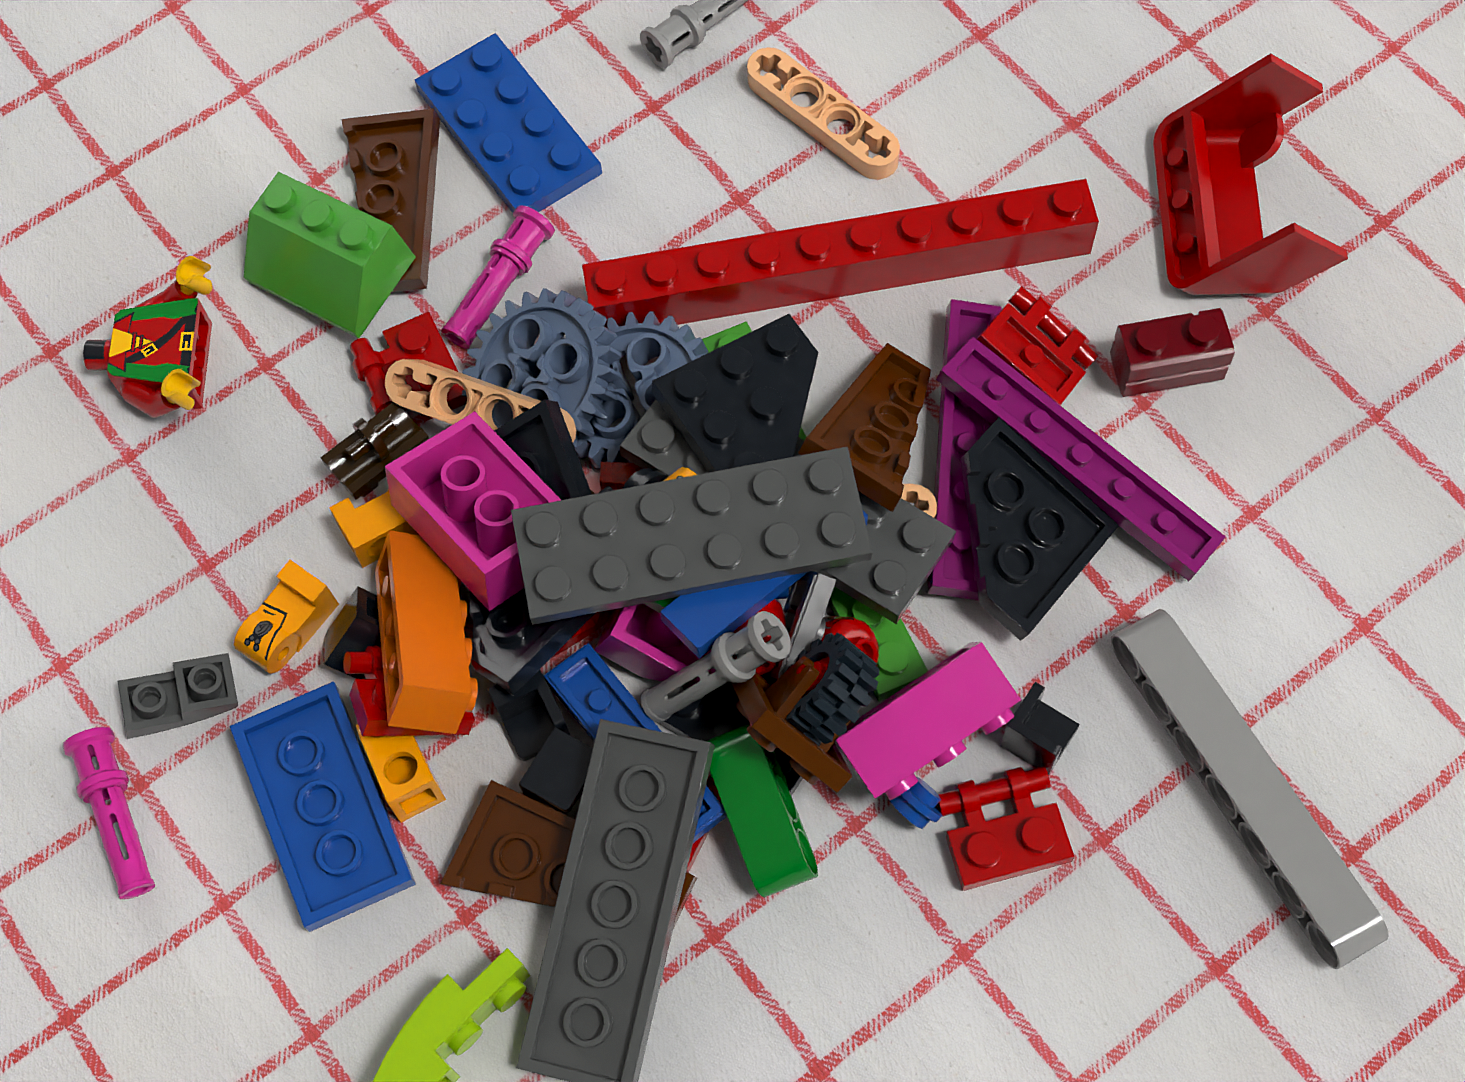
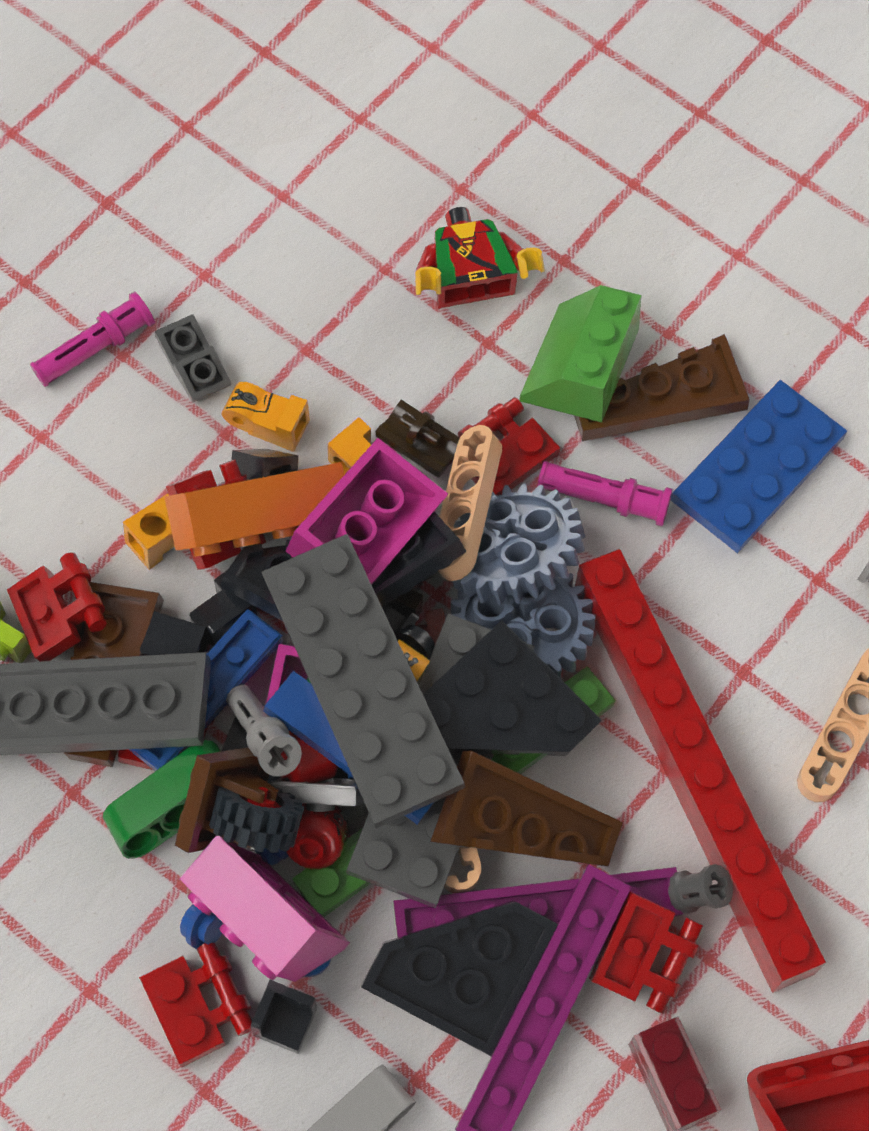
camera: 70 degrees right, 0 degrees up
(322, 806) = (119, 478): blue plate -> none
(482, 924) = (43, 611): none -> red plate
(983, 277) = (700, 889): none -> dark grey bush

